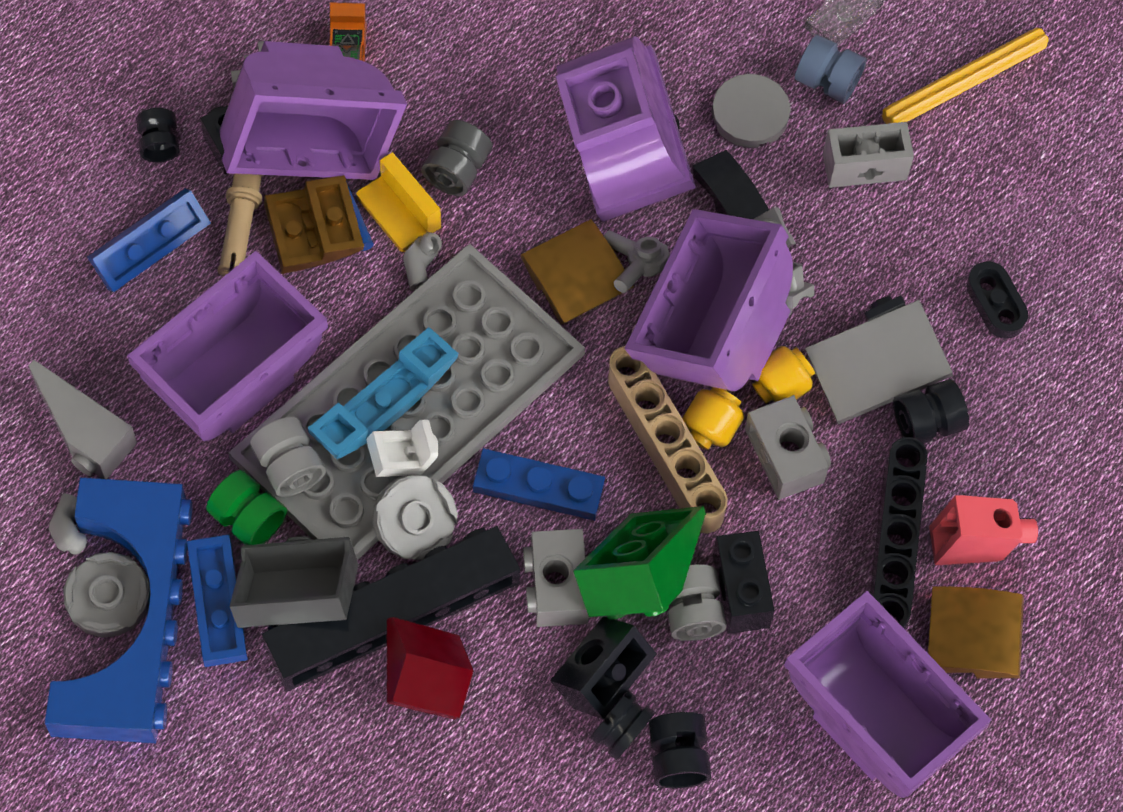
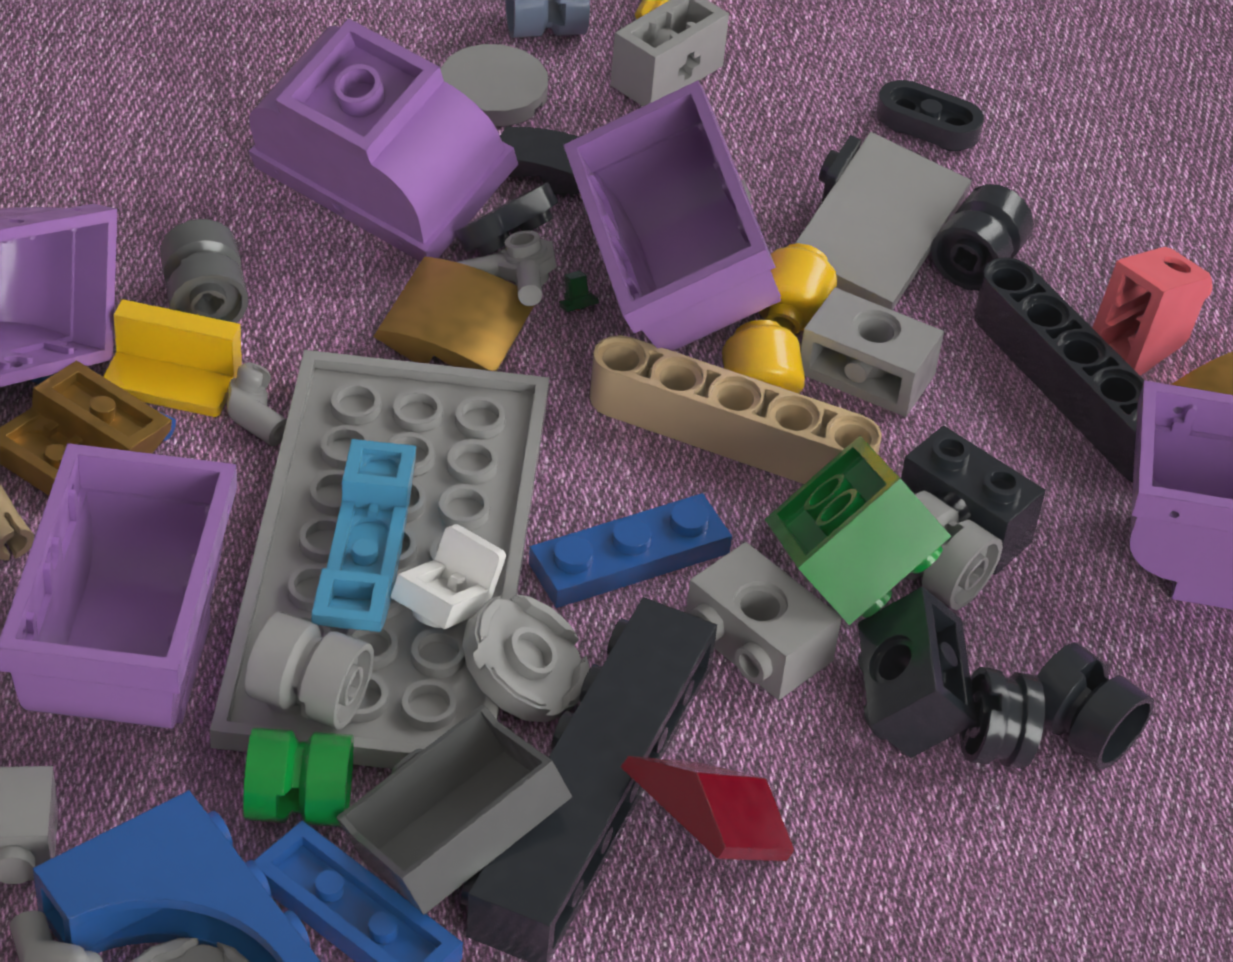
camera: 40 degrees left, 20 degrees down
(652, 220) = (492, 229): none -> black plate

